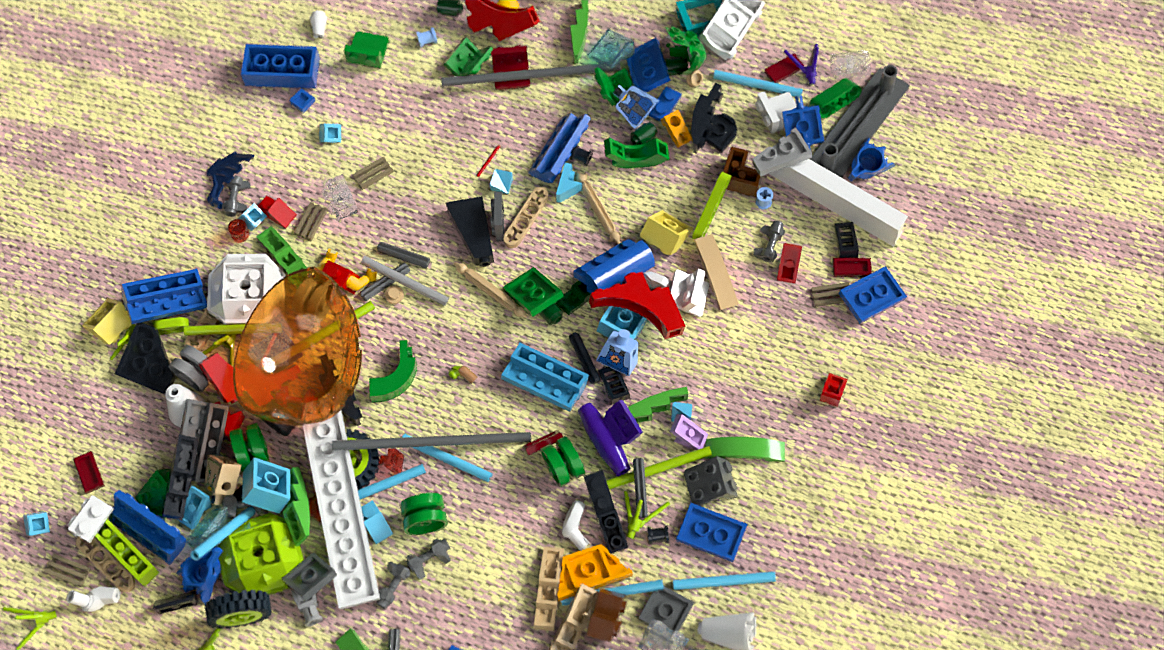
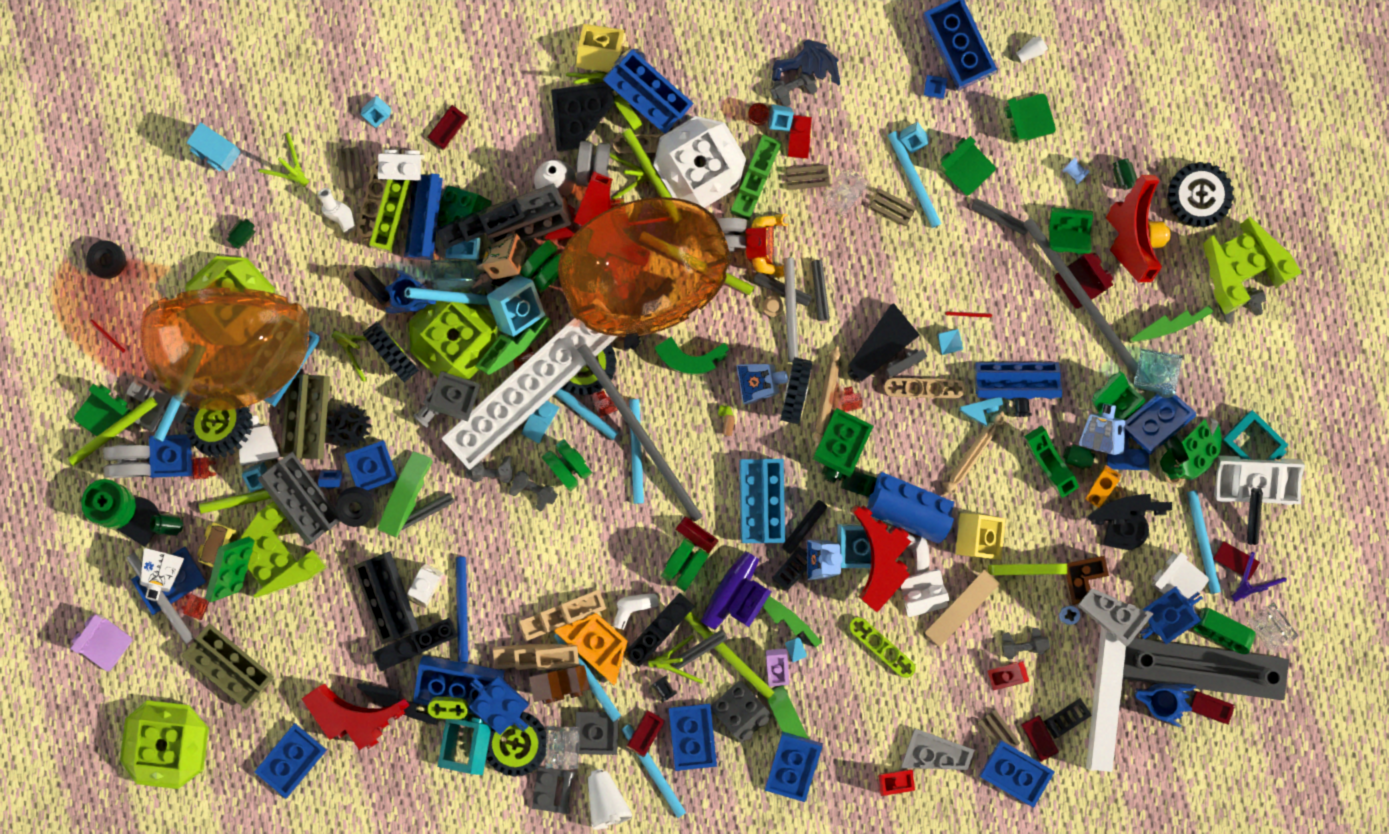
camera: 60 degrees right, 20 degrees up
(361, 148) = (914, 179): none -> medium azure piece
(375, 107) = (966, 166): none -> green bracket
(428, 103) = (999, 216): none -> dark grey axle
(447, 331) = (759, 381): none -> torso
(470, 302) = (796, 390): none -> black wheel
(504, 272) = (850, 400): none -> clear red tile
(688, 569) = (645, 733): none -> dark red tile
(716, 349) = (880, 649): none -> lime beam
(757, 36) = (1254, 516): none -> black axle
(779, 460) = (793, 766): none -> blue plate
(824, 348) = (934, 752): none -> light grey wing
(891, 135) = (1212, 707): none -> dark red tile

